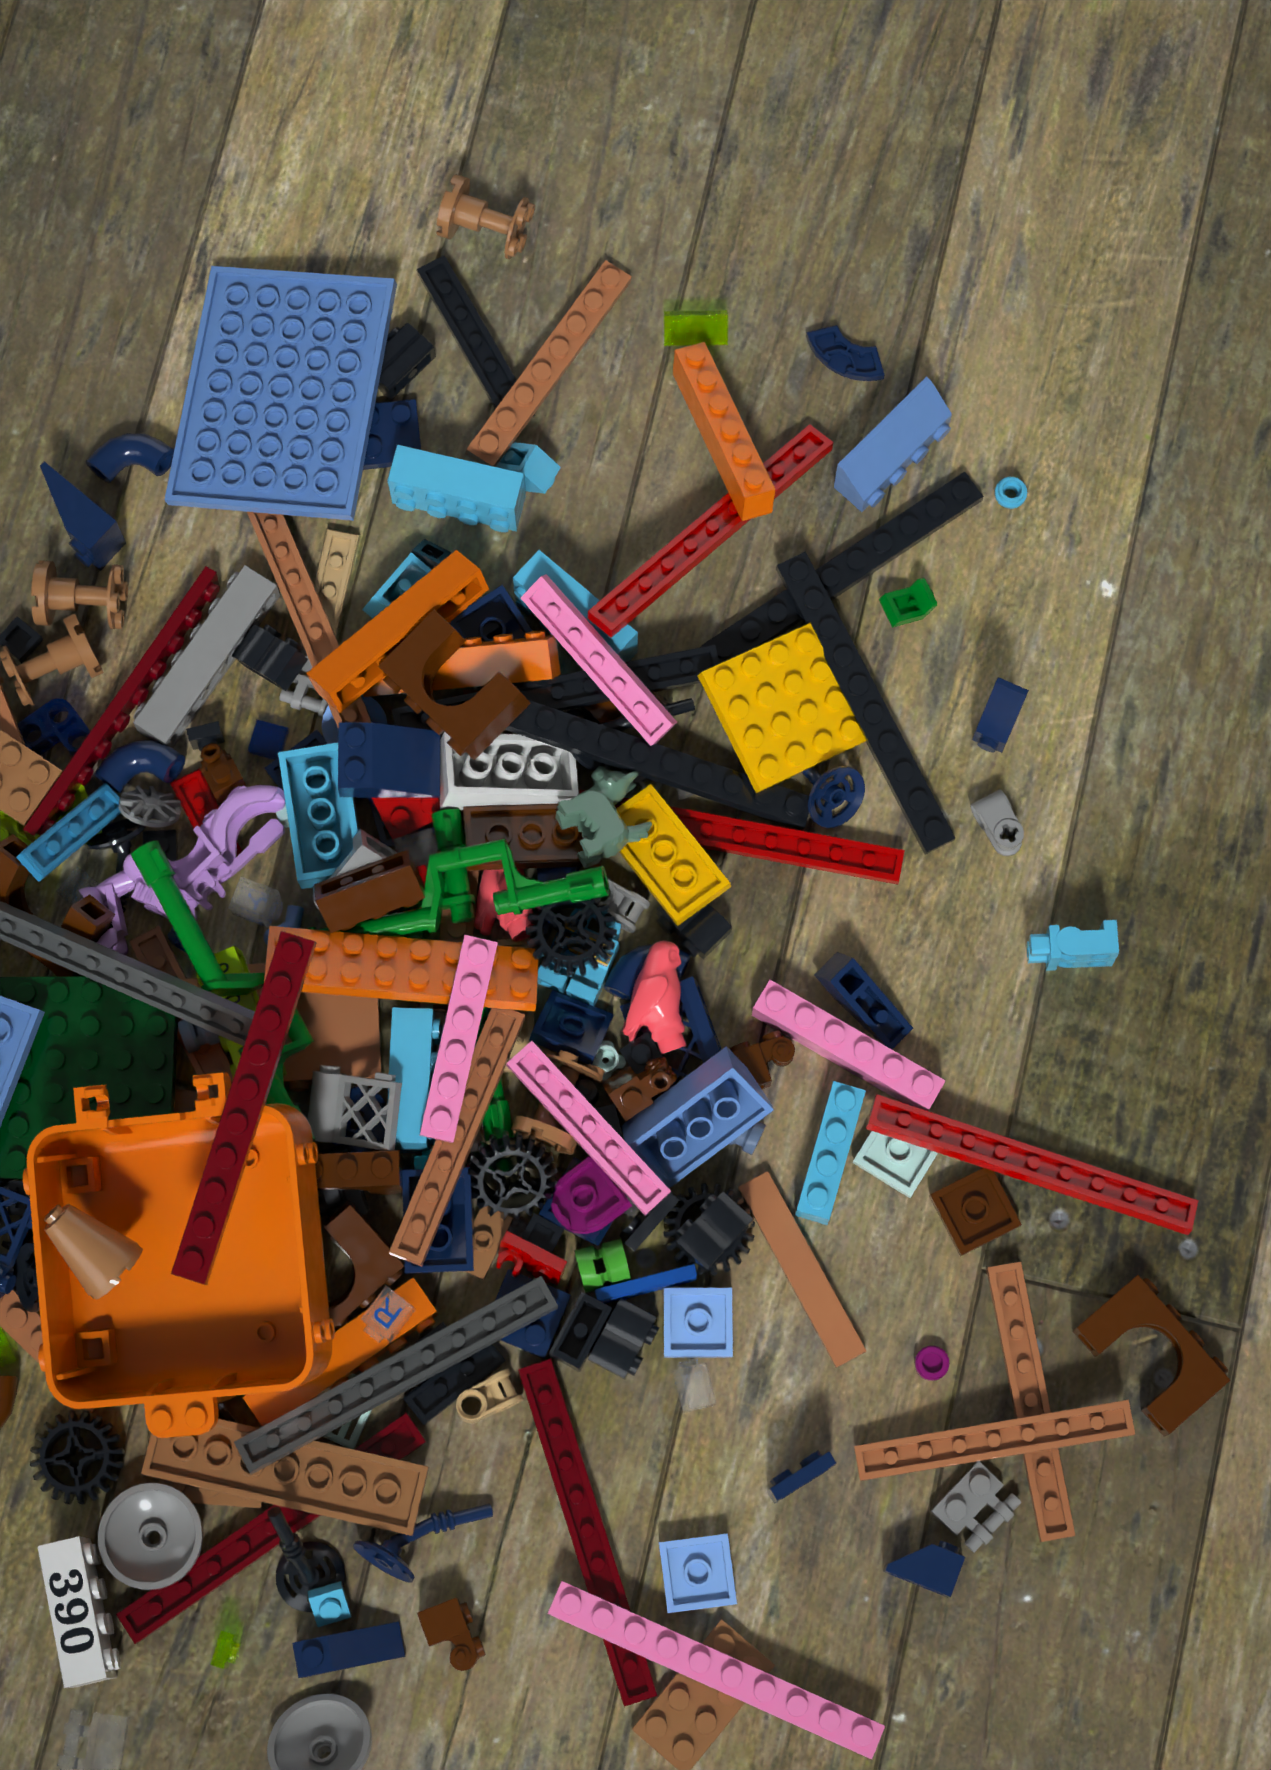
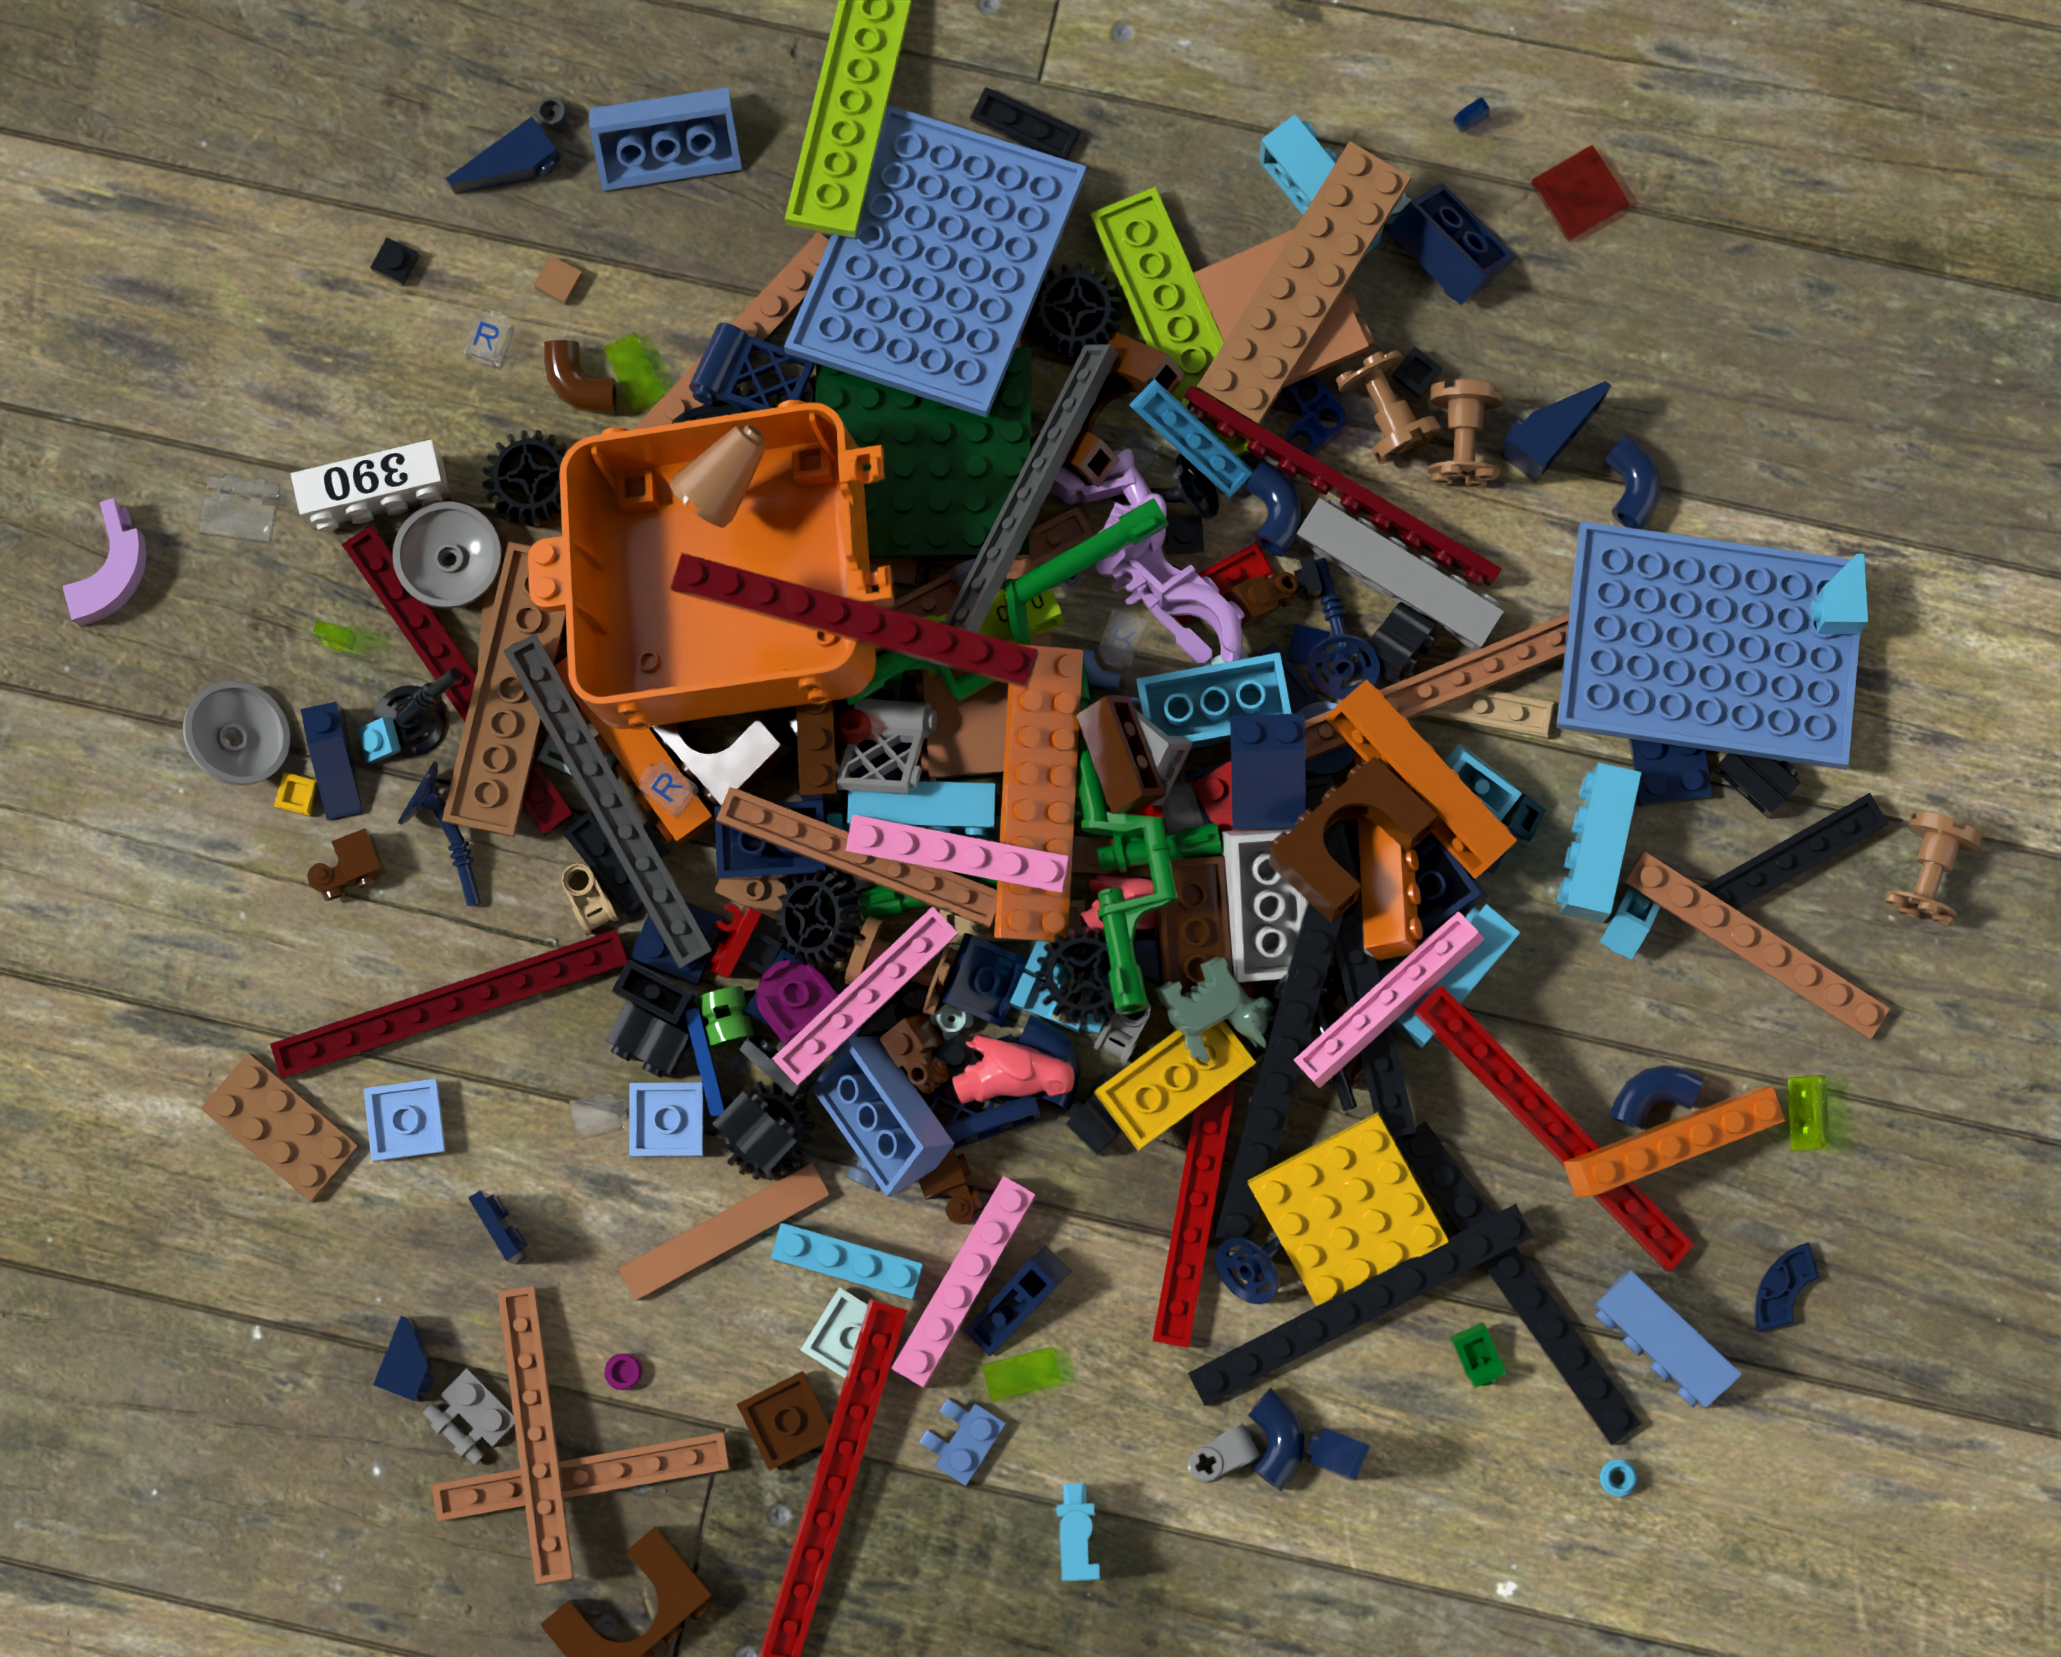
camera: 95 degrees right, 5 degrees up
(150, 805) = (1226, 520): light grey wheel -> none
(247, 279) = (1843, 601): none -> medium azure slope
(280, 704) = (1345, 646): none -> dark blue dish
(327, 1135) = (853, 719): none -> clear red plate
(379, 1687) = (296, 794): none -> yellow tile
(672, 451) = (1654, 1087): none -> dark blue cylinder
(716, 1670) = (303, 1138): bright pink plate -> none
(928, 999) = (1021, 1373): none -> clear neon green plate
(983, 769) = (1284, 1439): none -> dark blue cylinder
(993, 1047) = (969, 1444): none -> medium blue plate

